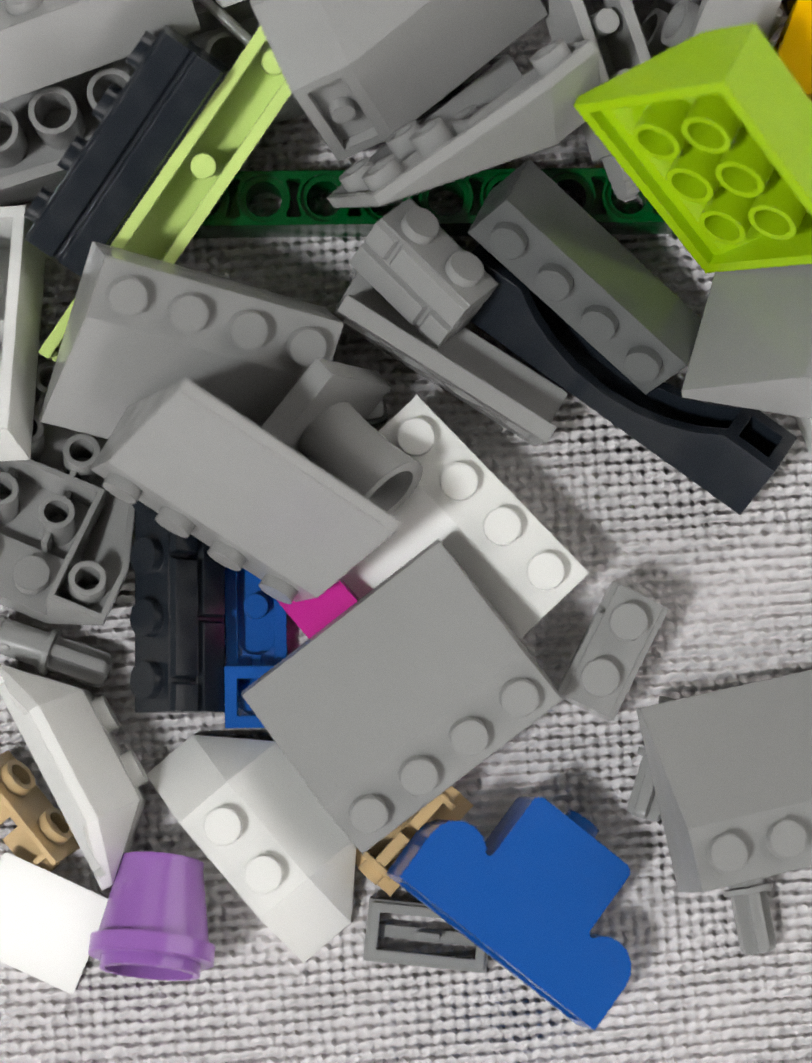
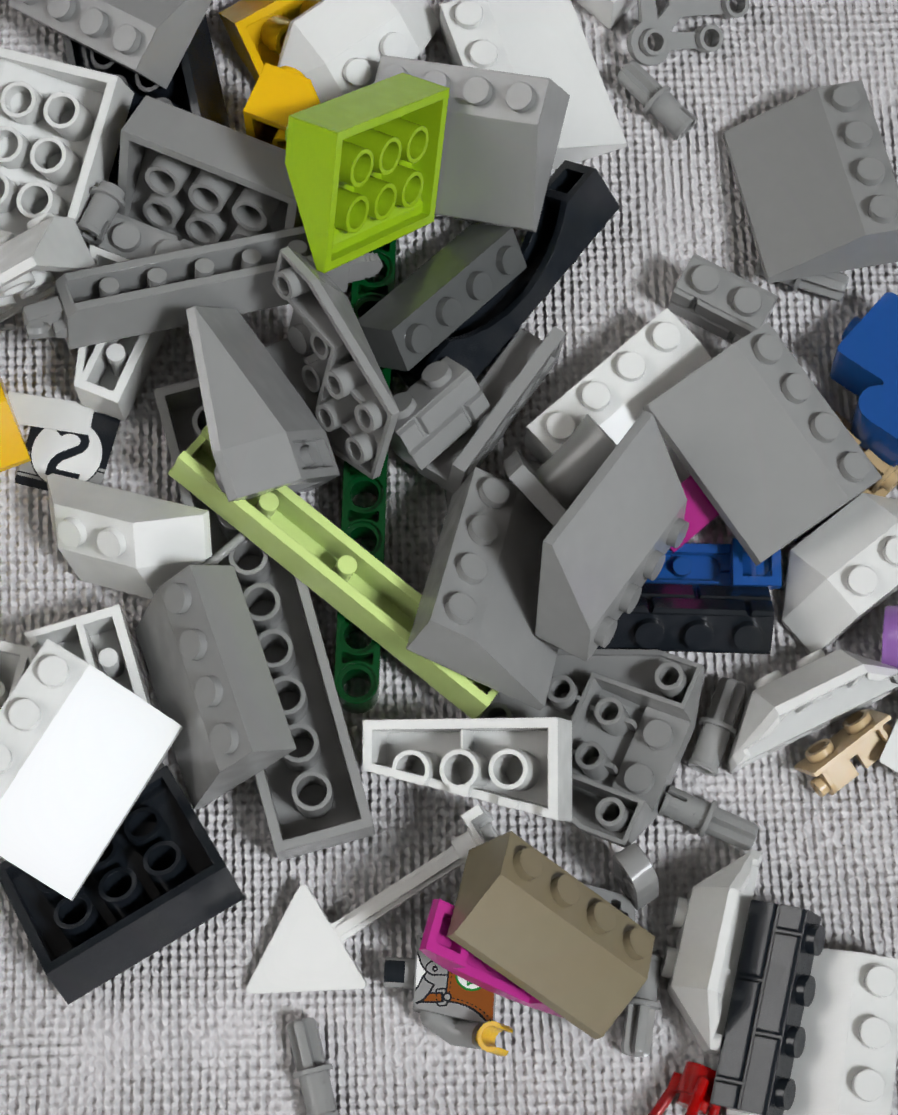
camera: 95 degrees left, 10 degrees down
(126, 150) = (329, 628): black brick -> none

